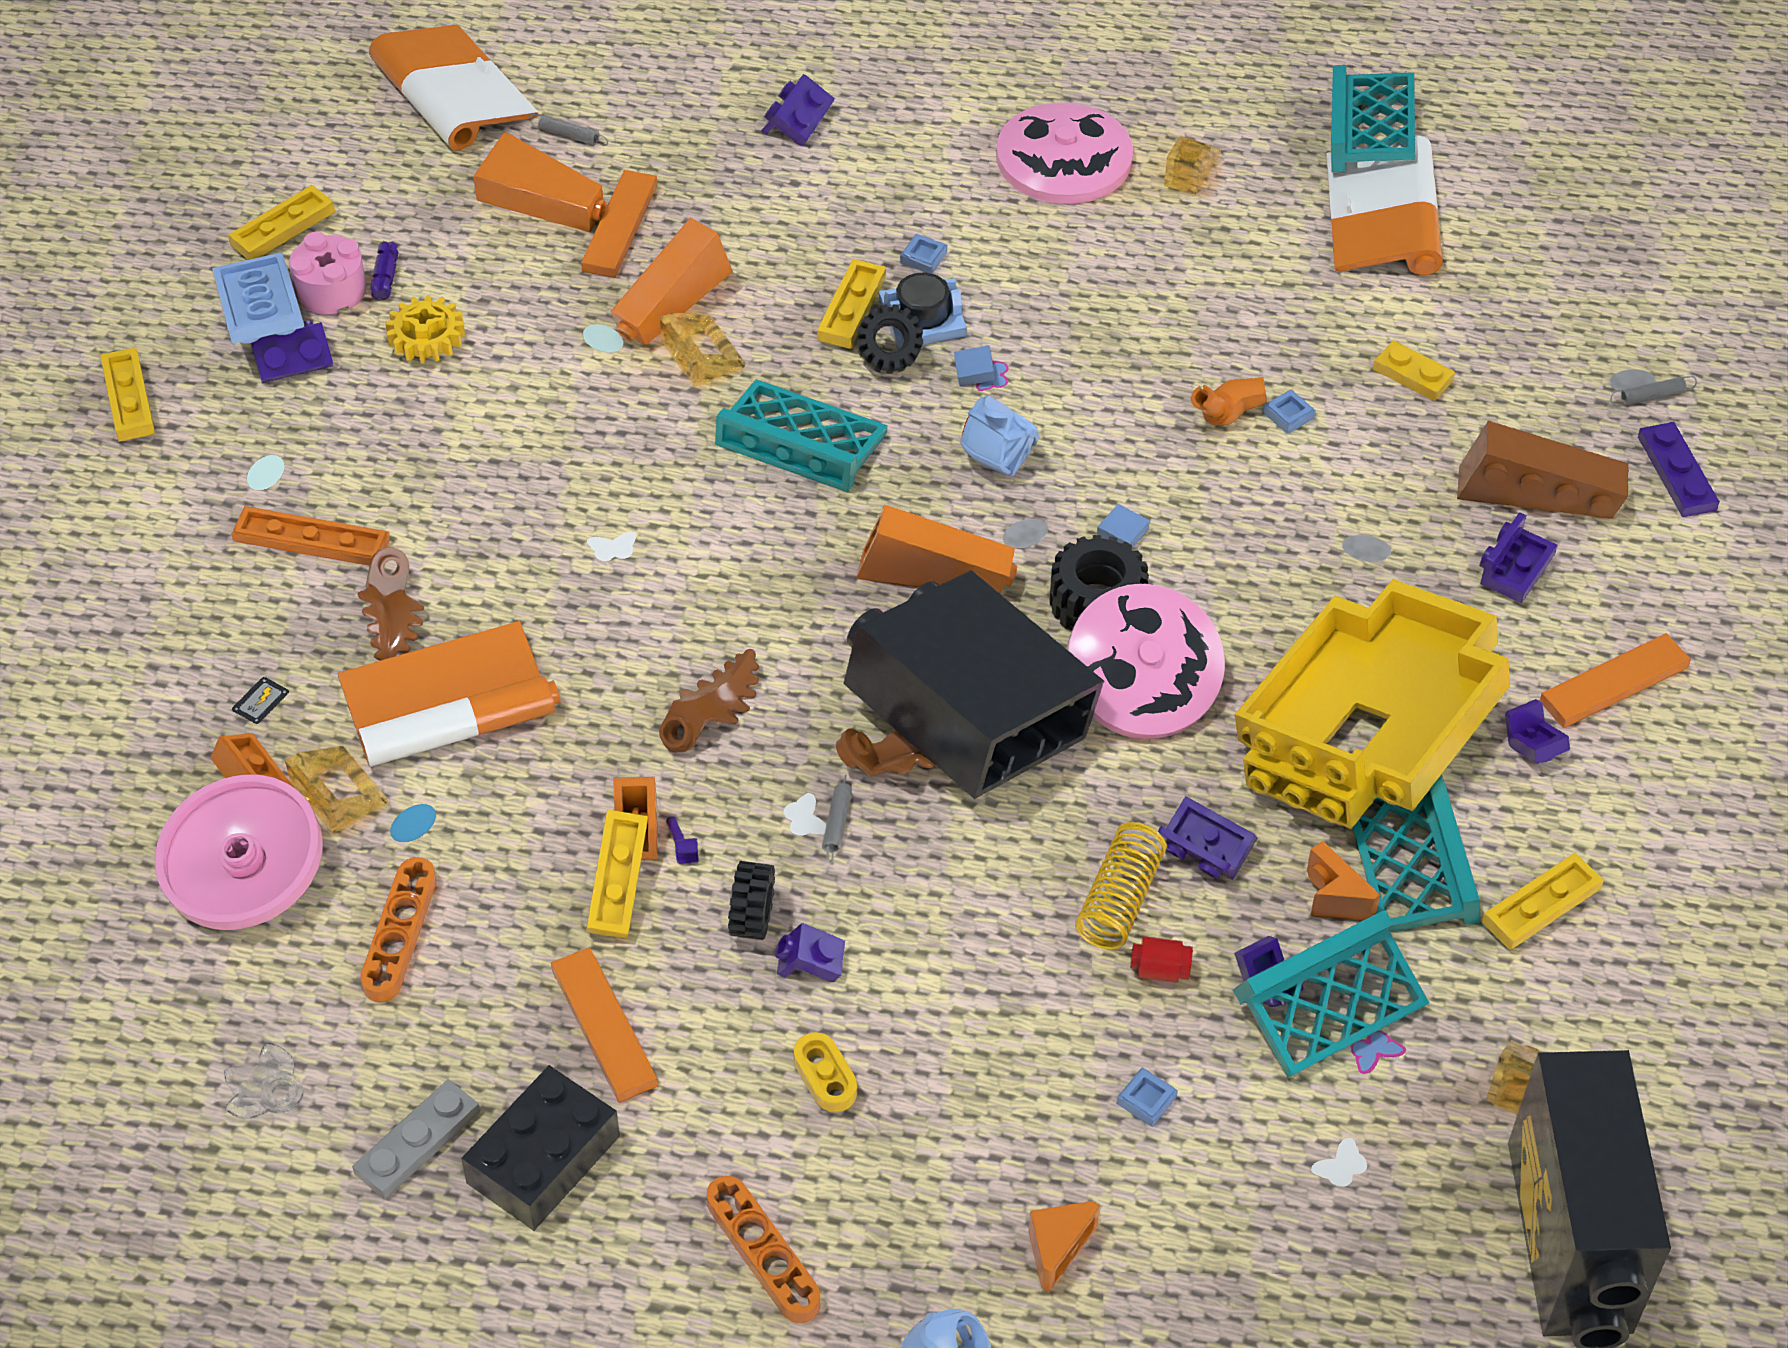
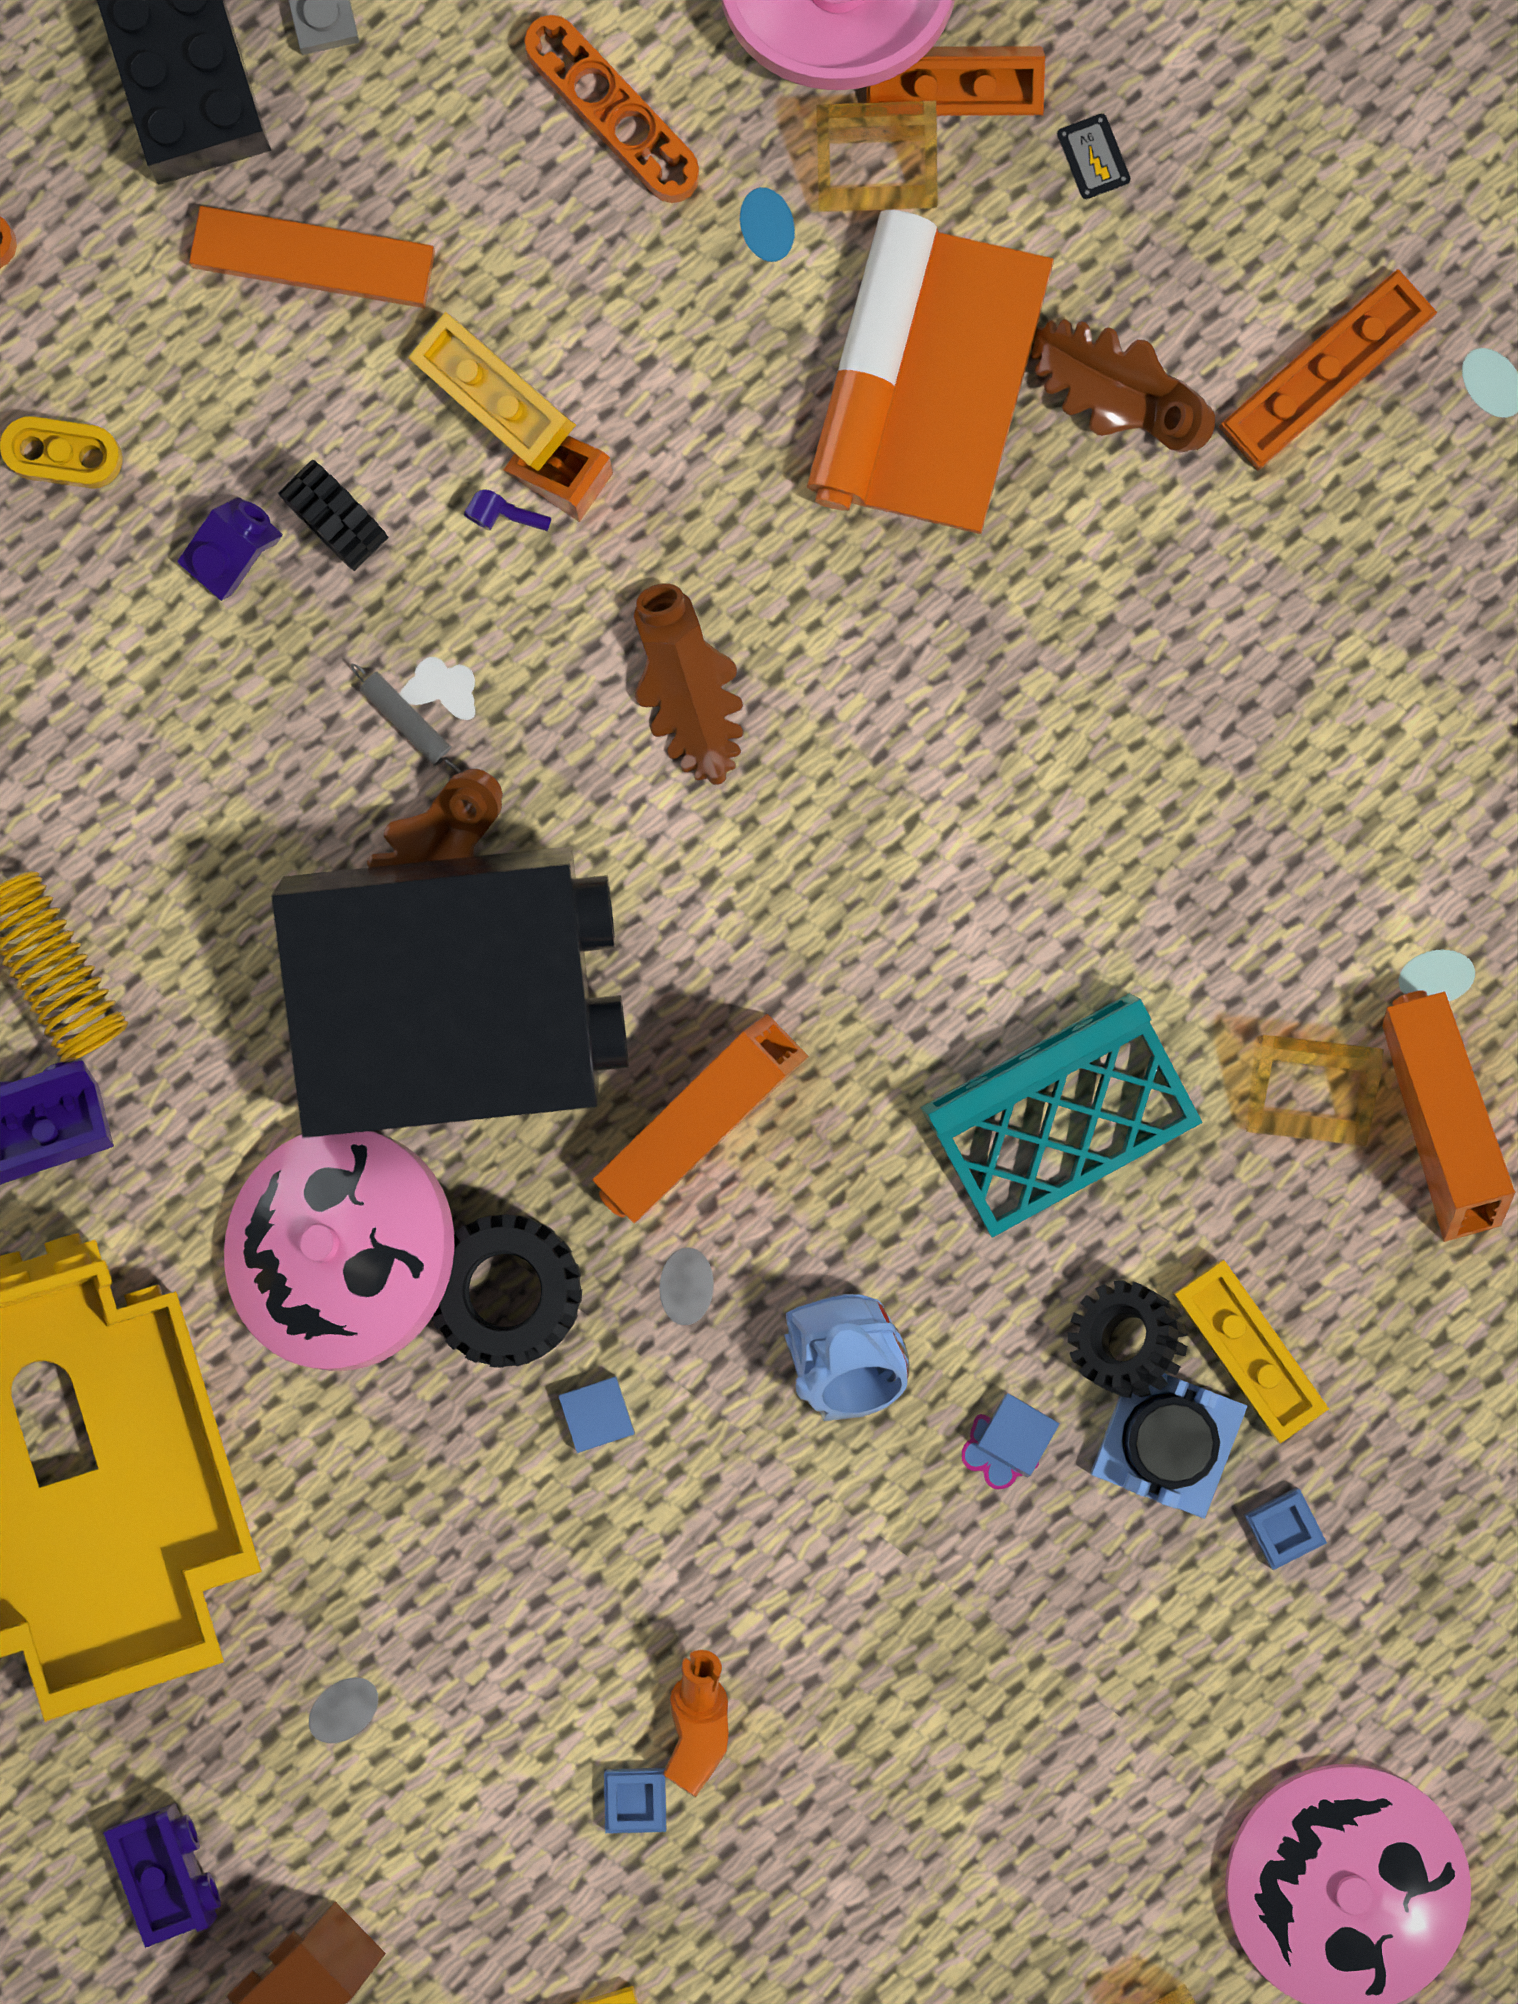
camera: 125 degrees right, 35 degrees up
(607, 549) = (1037, 746): white sticker -> none

